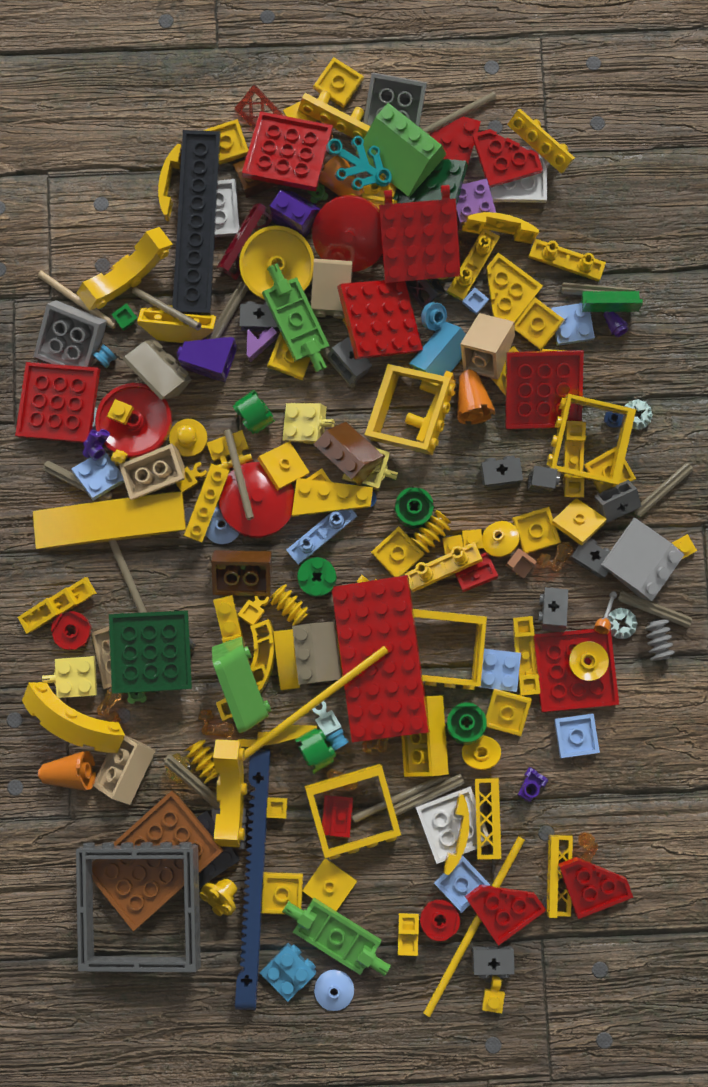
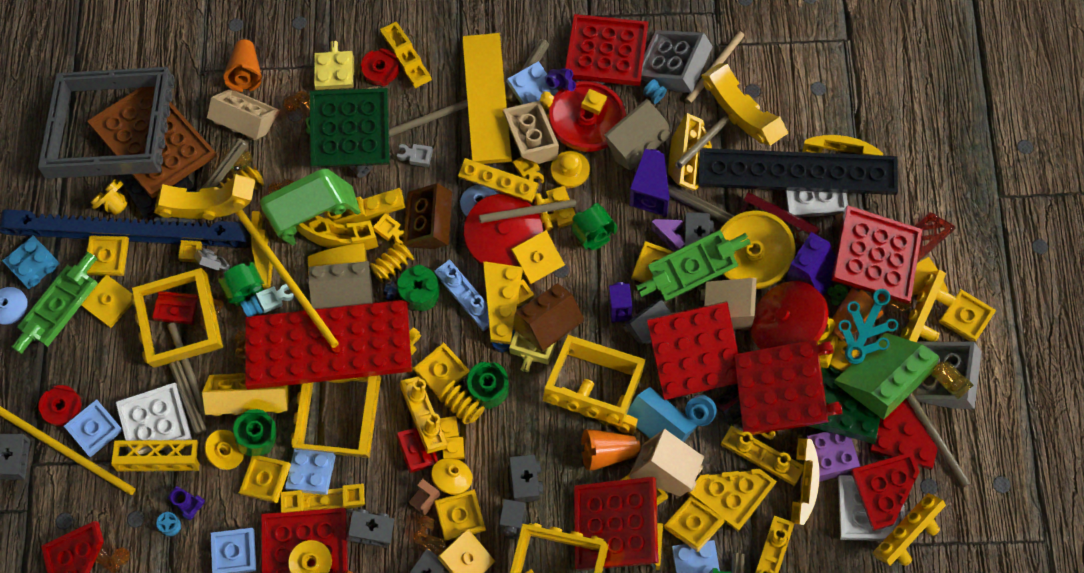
camera: 95 degrees right, 15 degrees down
(69, 723) = (285, 62): yellow brick -> none
(124, 317) = (696, 108): green plate -> none
(172, 585) = (418, 155): none -> light grey plate
(232, 141) = (894, 207): yellow plate -> none
(293, 782) = (209, 259): none -> light grey plate
(305, 422) = (584, 279): light yellow plate -> none
(318, 605) = (390, 290): none -> dark blue plate
(332, 386) = (620, 302): none -> dark purple brick
(408, 93) = (951, 379): none -> clear yellow slope
(408, 934) = (49, 375): yellow slope -> none
(451, 858) = (164, 425): yellow slope -> none
(475, 301) = (720, 456): light blue plate -> none
(504, 909) = (60, 468): red plate -> none
(553, 878) = (78, 520): yellow fence -> none
(556, 798) = (165, 520): none -> dark azure wheel
(574, 457) = (540, 560): yellow slope -> none

